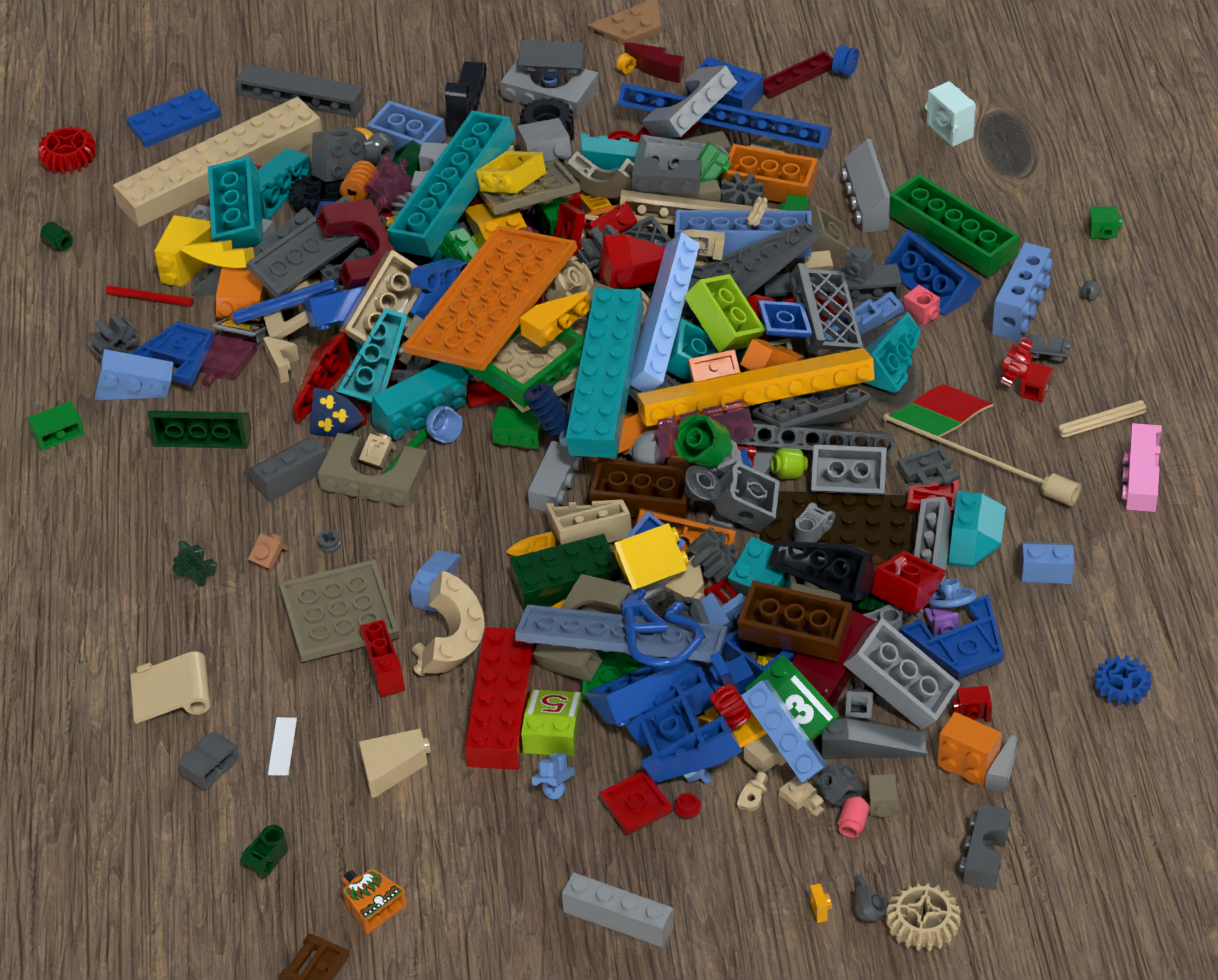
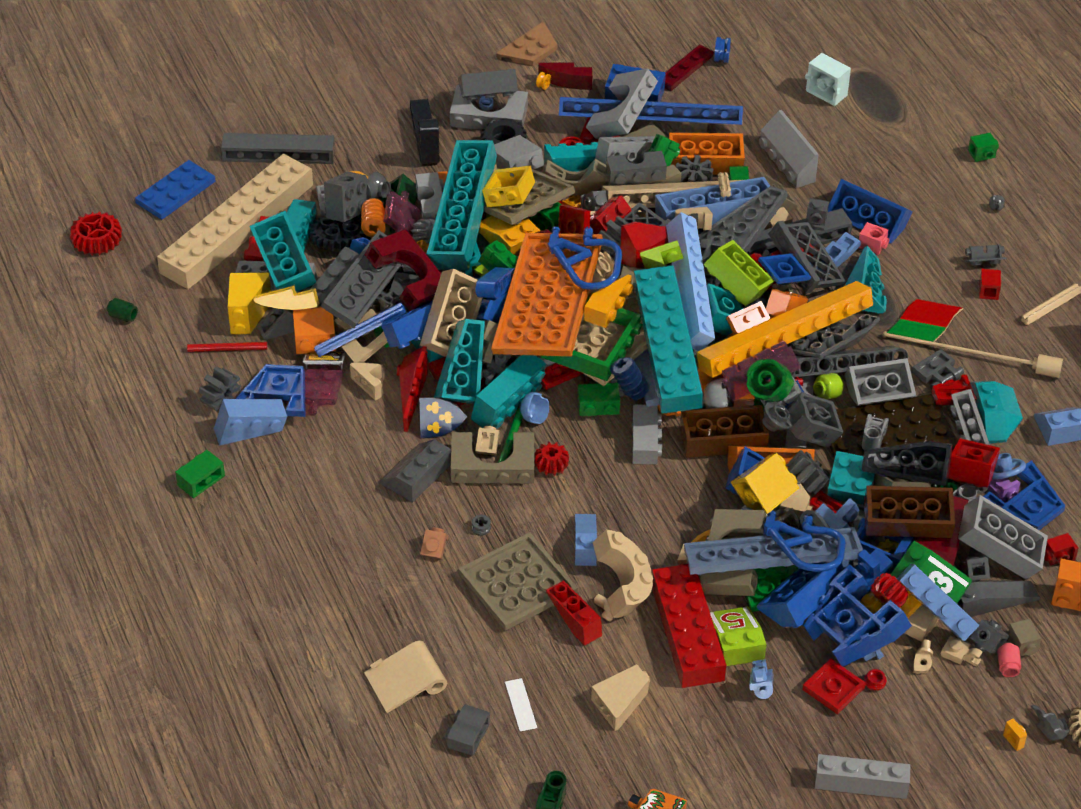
camera: 20 degrees left, 0 degrees up
(191, 563) = (375, 567): clear green hips -> none
(200, 429) = (329, 451): dark green slope -> none
(407, 124) = (389, 162): medium blue brick -> none
(437, 483) = (551, 458): none -> red gear
(522, 243) = (557, 244): none -> blue piece
(532, 544) = (656, 494): light orange plate -> none
(550, 573) = (688, 511): dark green brick -> none
(585, 521) = (692, 469): tan wedge -> none
(604, 203) = (593, 200): none -> dark grey brick
(639, 276) = (661, 255): none -> lime slope
(954, 225) = (871, 169): green brick -> none
(1016, 361) = (971, 270): red gear -> none
(1022, 291) = (950, 213): medium blue brick -> none

